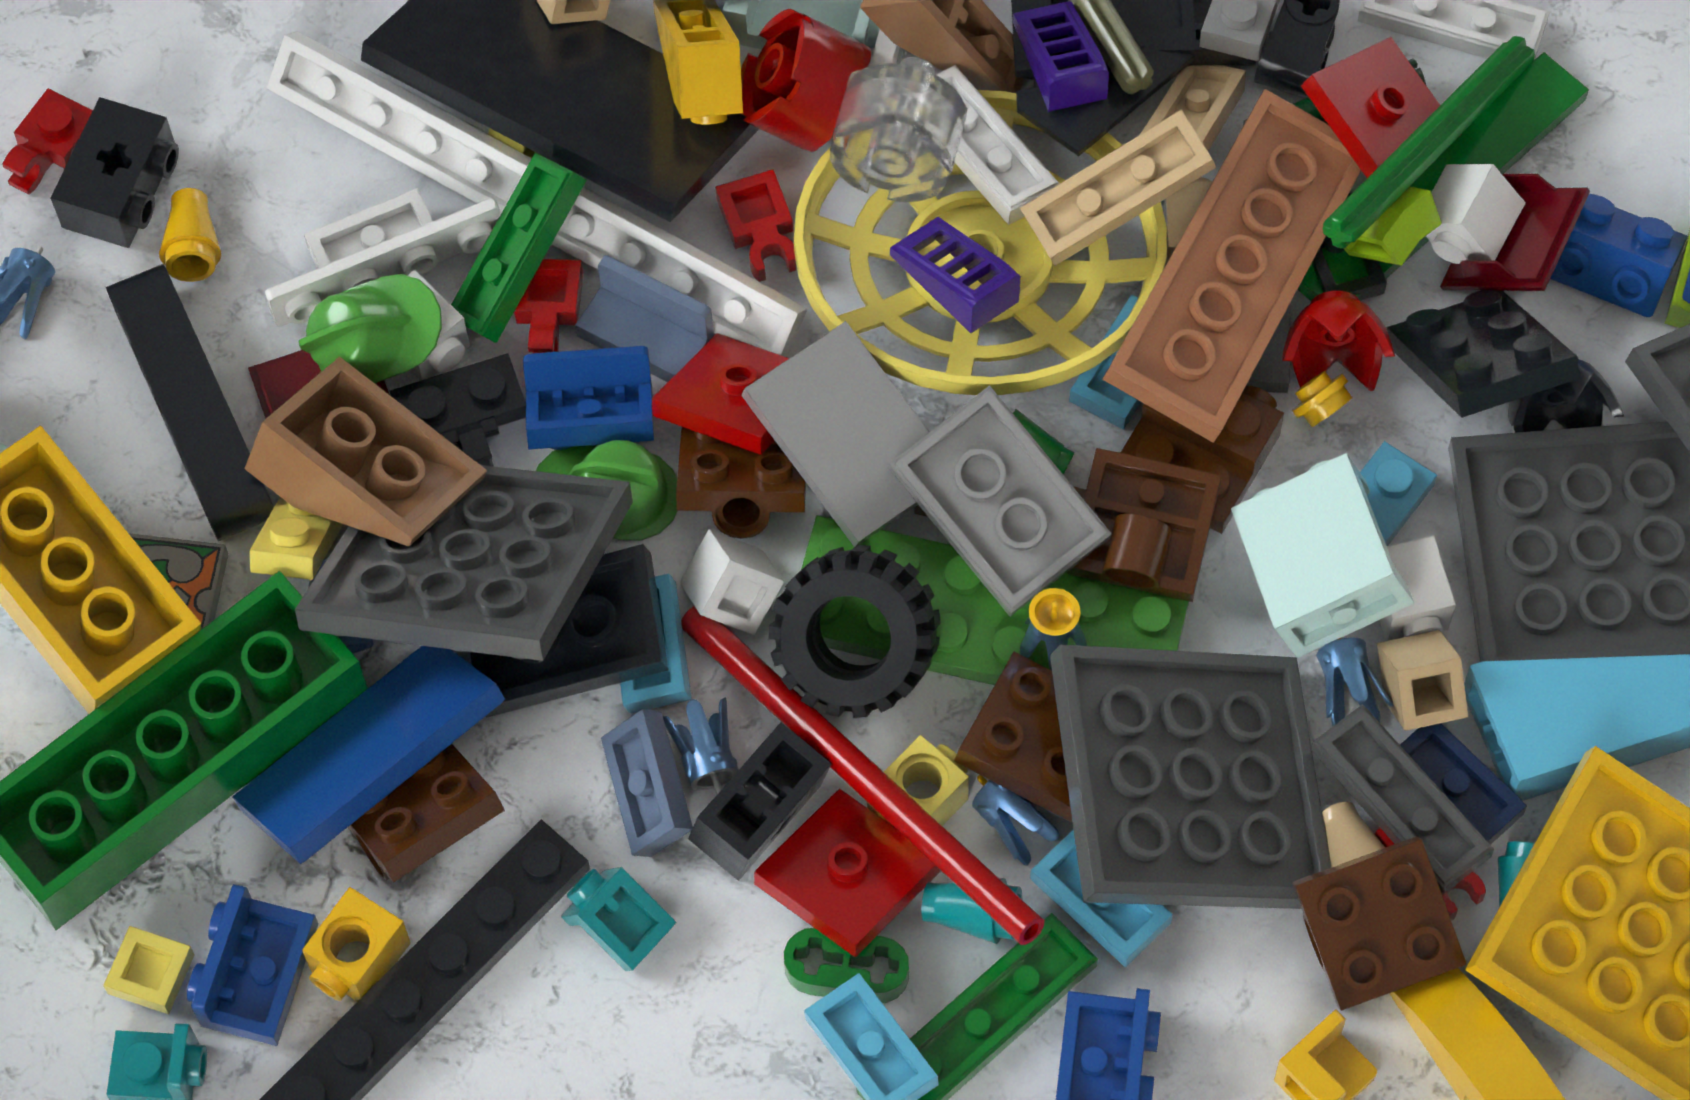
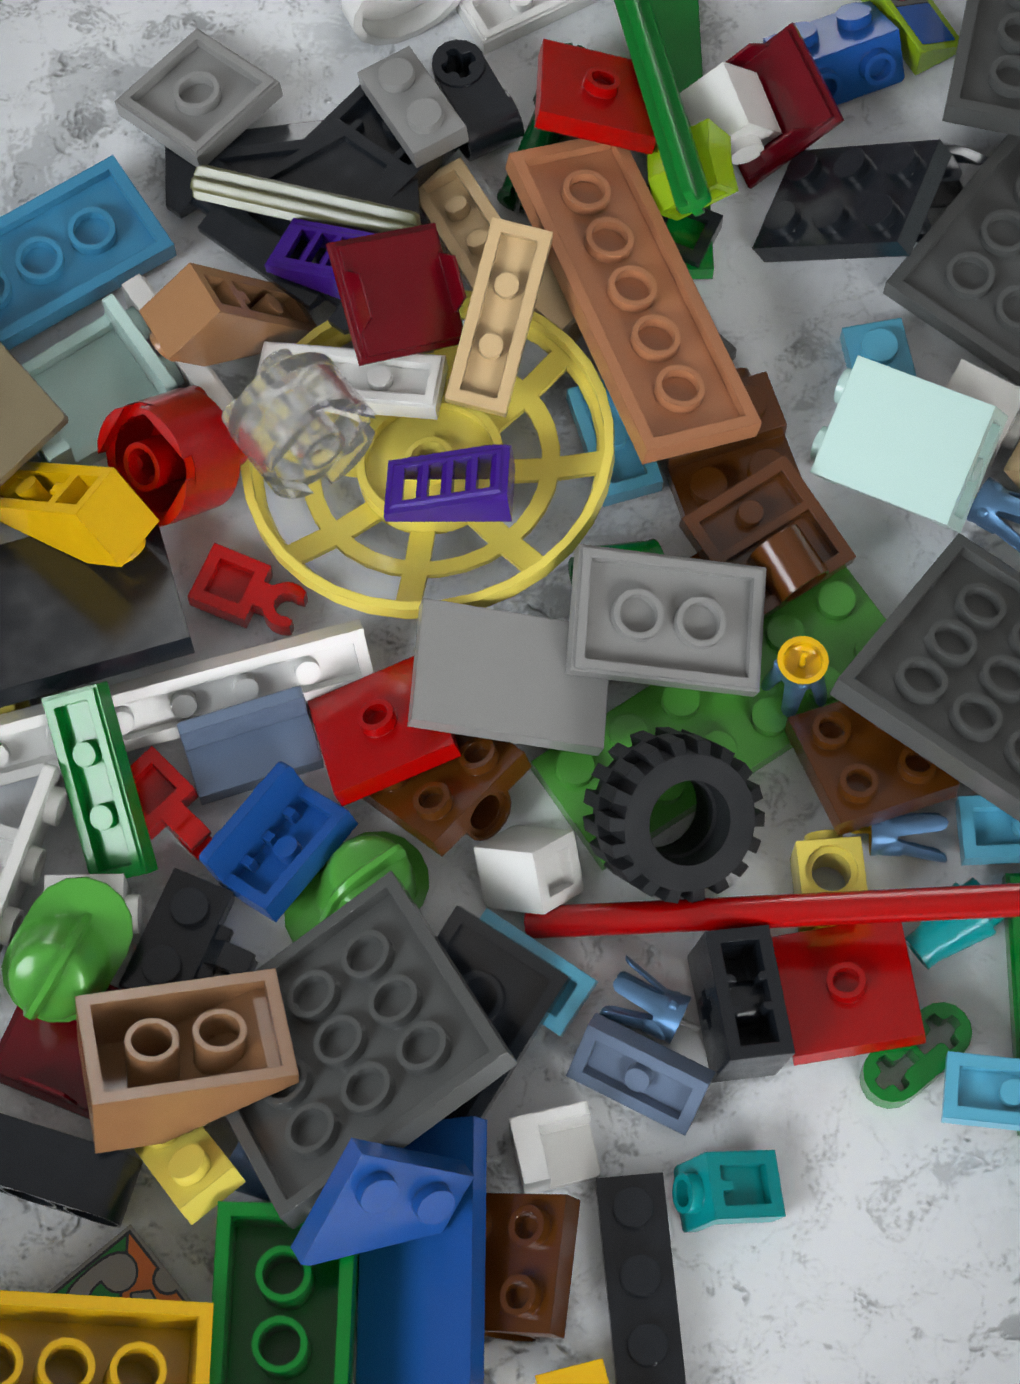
camera: 50 degrees left, 5 degrees up
(370, 665) = (380, 1200): none -> blue wing
(536, 771) = (554, 1148): none -> white panel
(1067, 105) = (398, 292): none -> dark red piece
(1321, 398) = (770, 338): yellow plate -> none
(1341, 331) = (739, 277): red piece -> none

